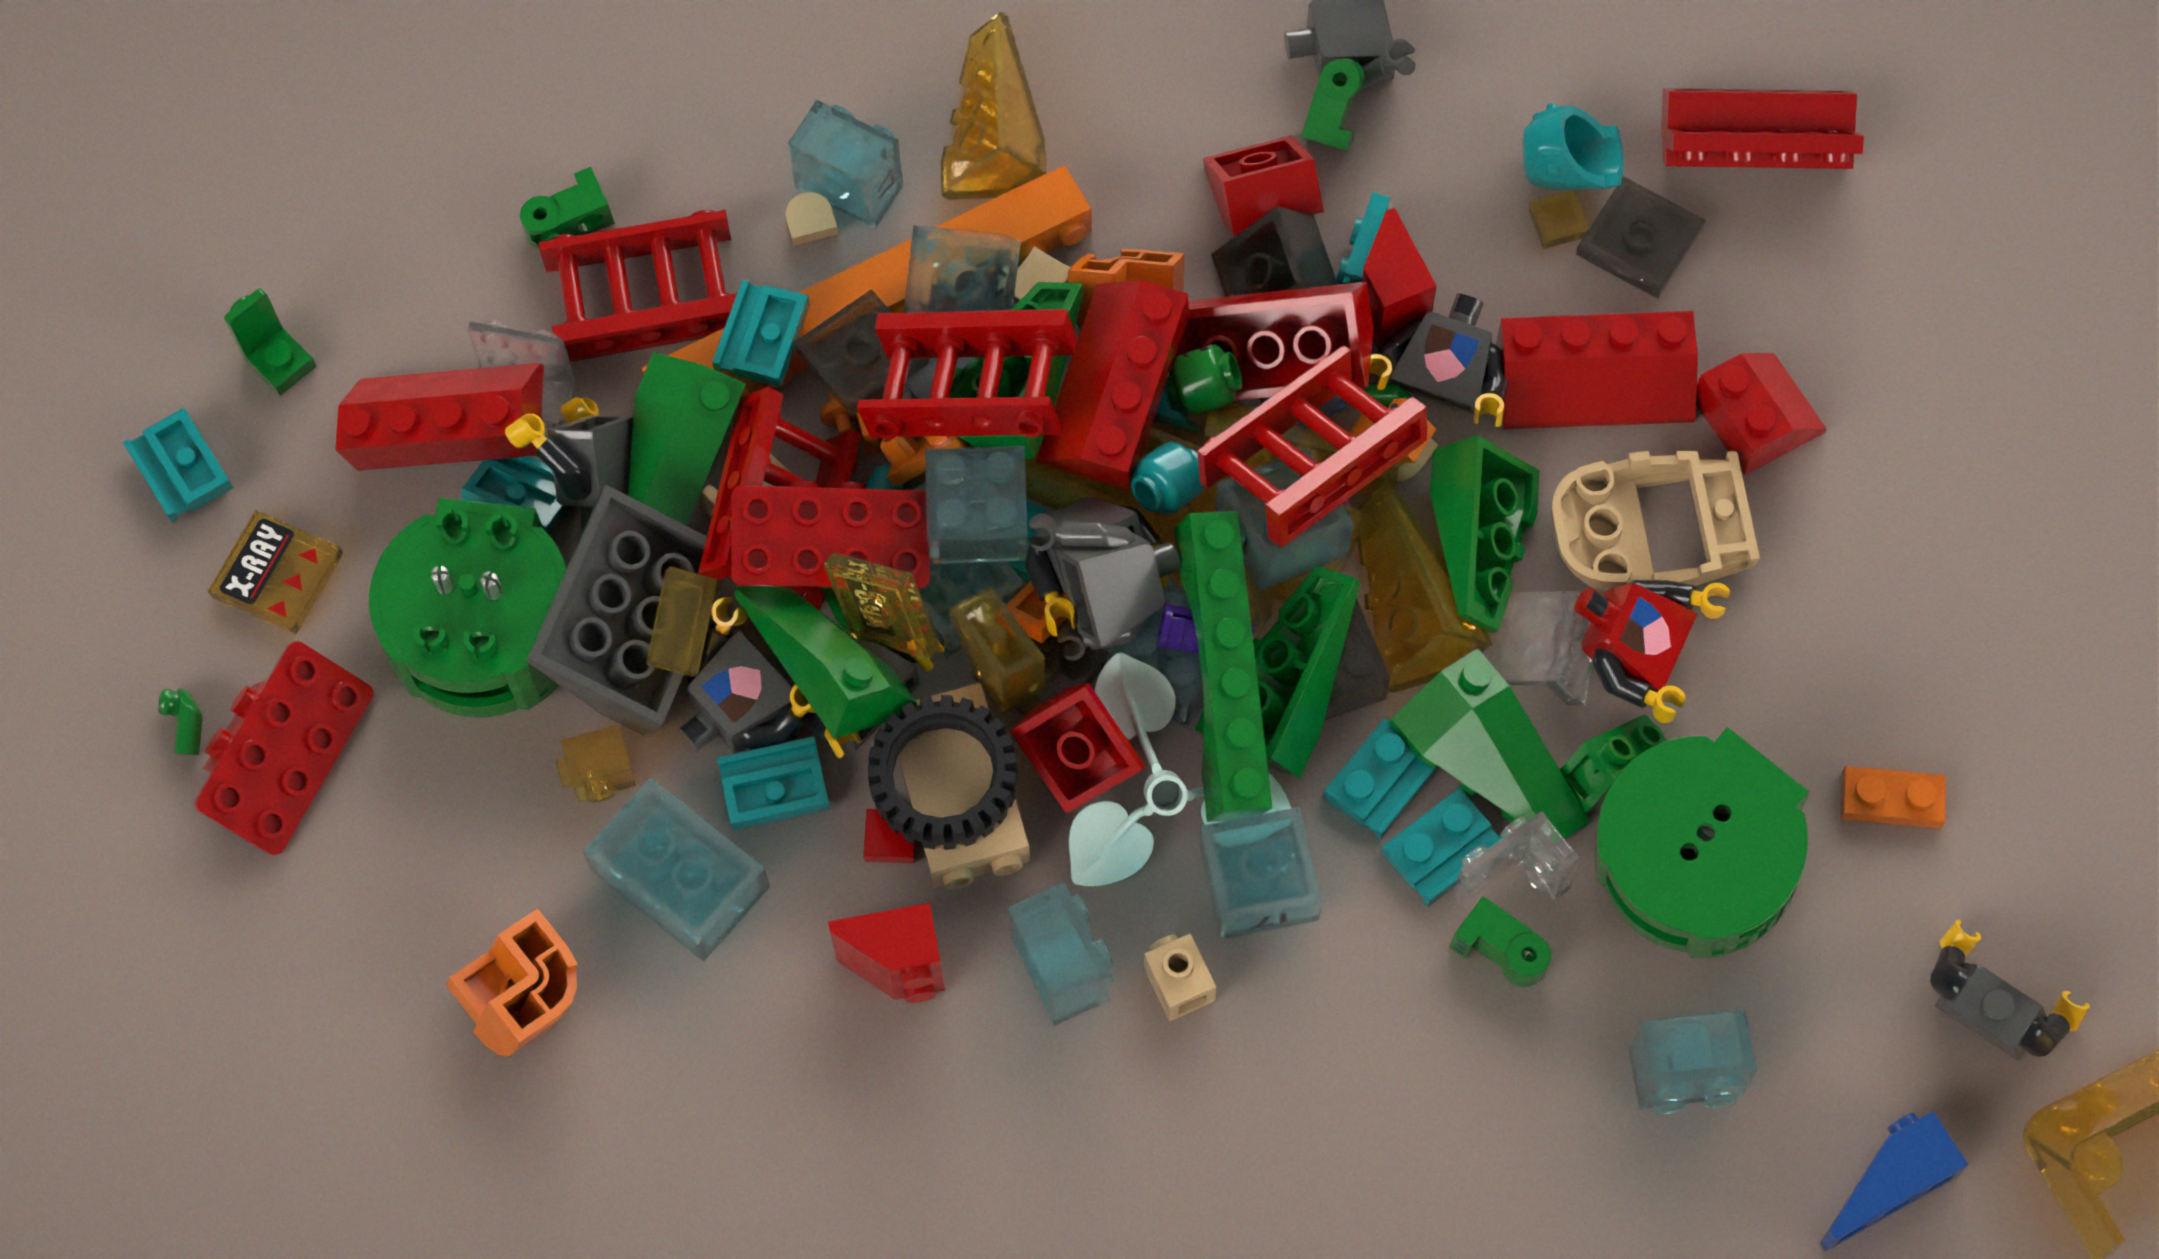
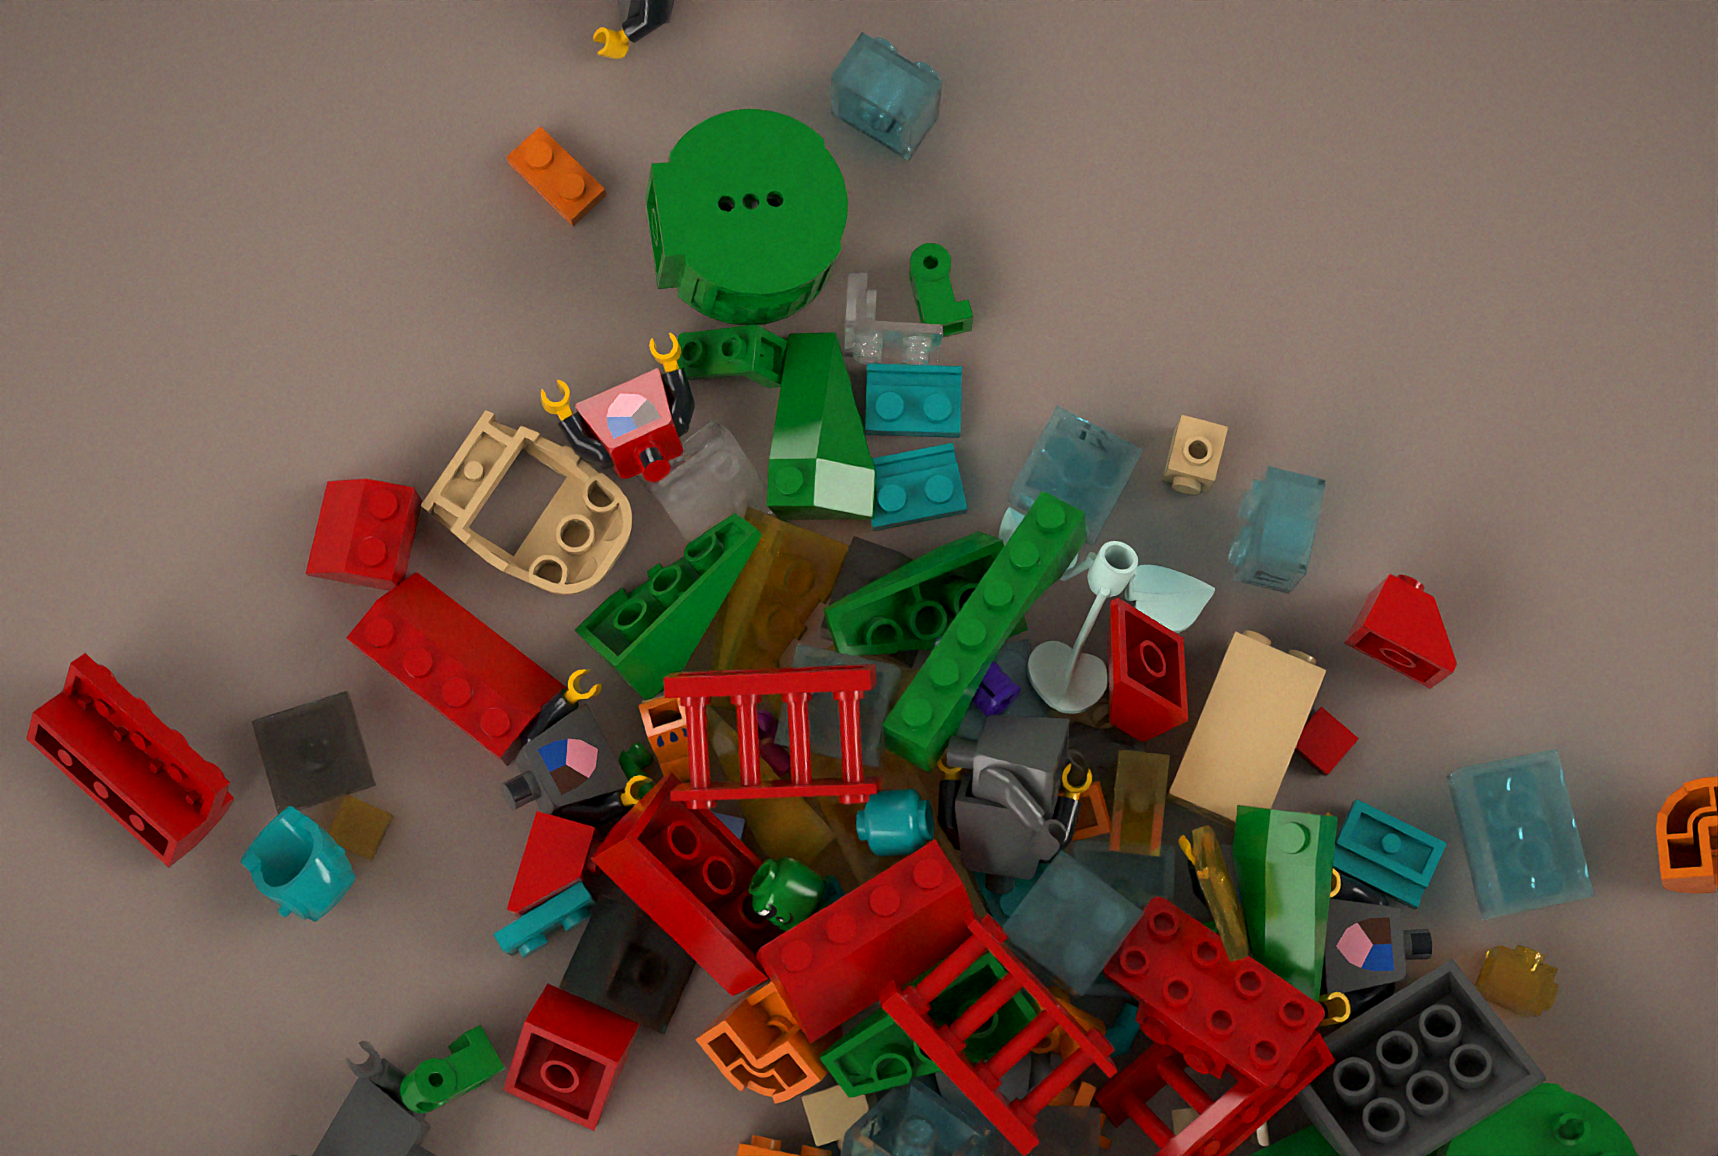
camera: 145 degrees left, 10 degrees up
(681, 621) = (1379, 1027): clear yellow tile -> none
(935, 716) = (1306, 692): black tyre -> none

